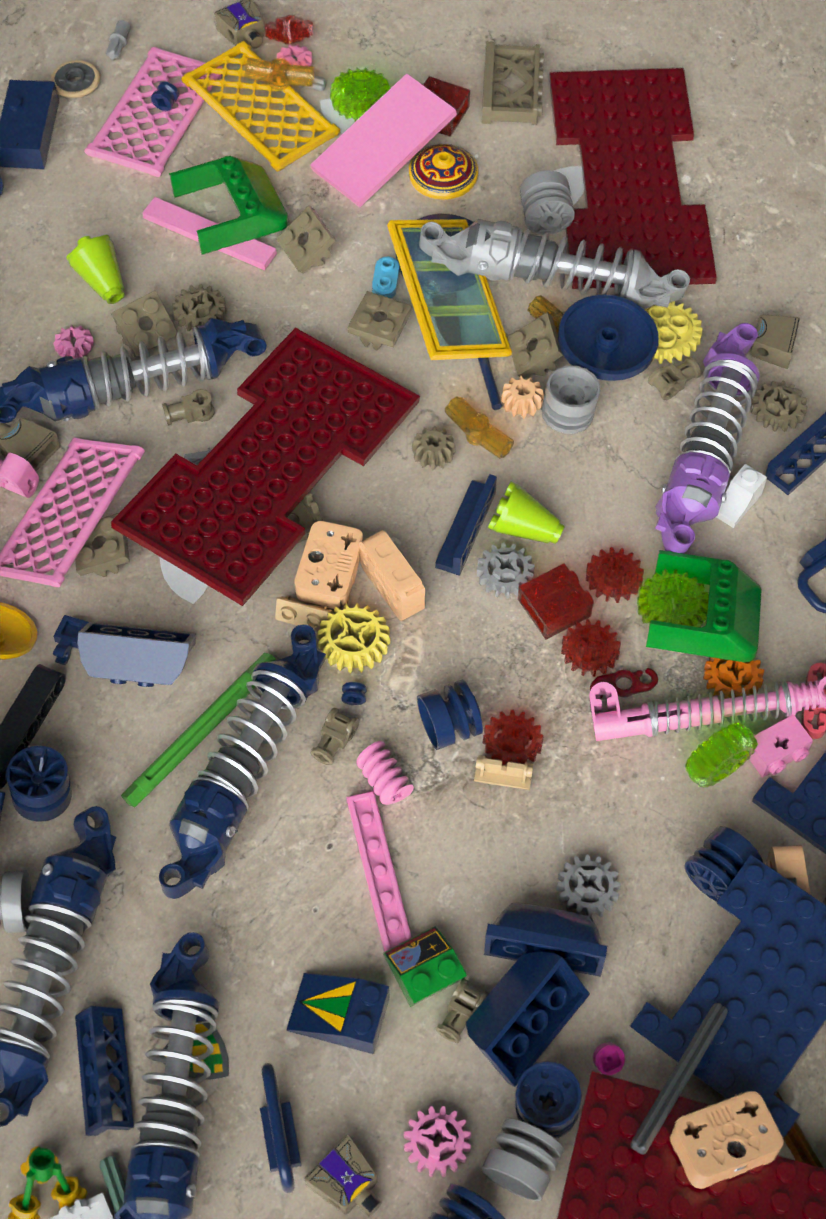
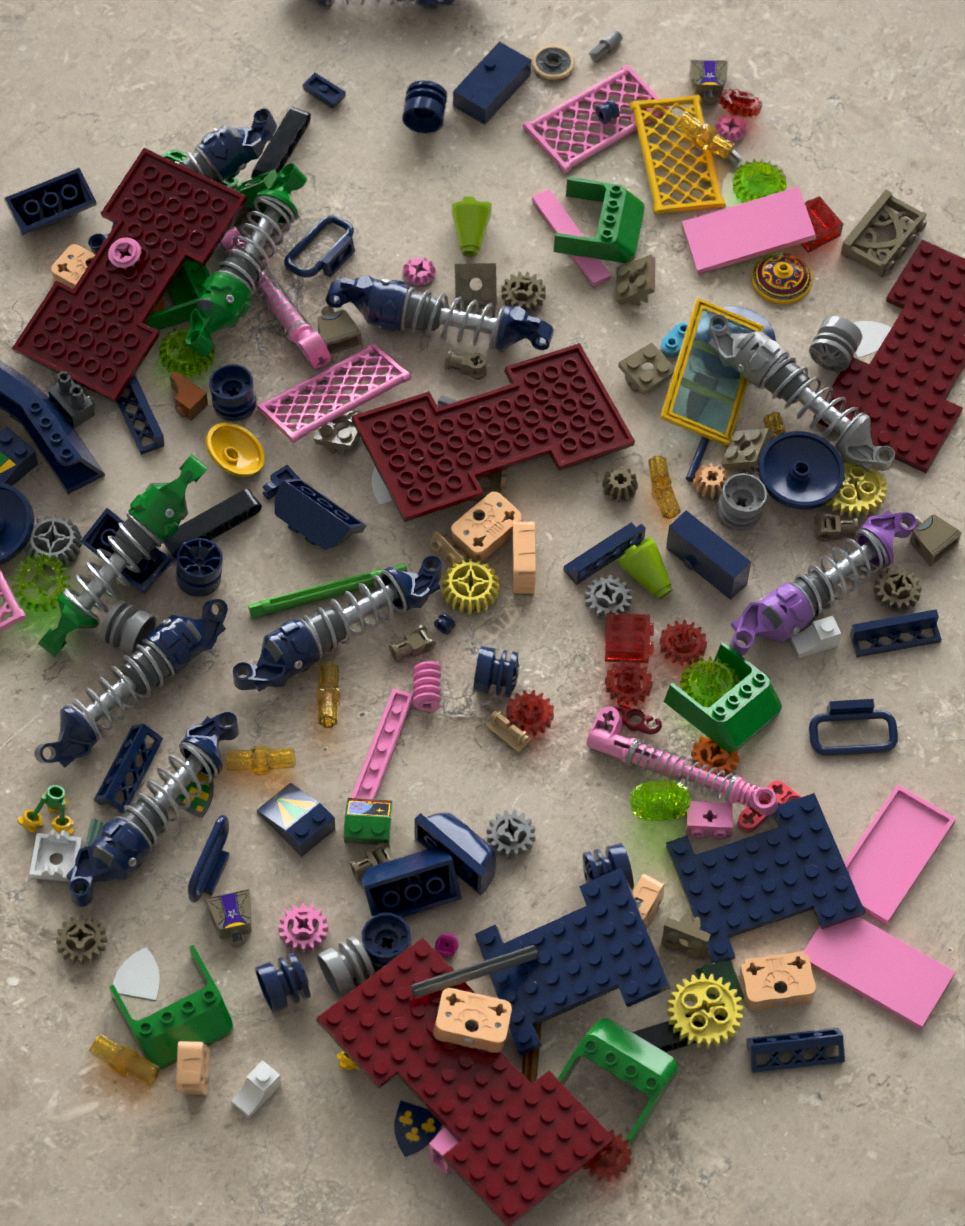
camera: 30 degrees right, 0 degrees up
(253, 967) = (260, 759): none -> clear yellow piece
(281, 846) = (328, 695): none -> clear yellow piece
(577, 469) = (708, 554): none -> dark blue brick

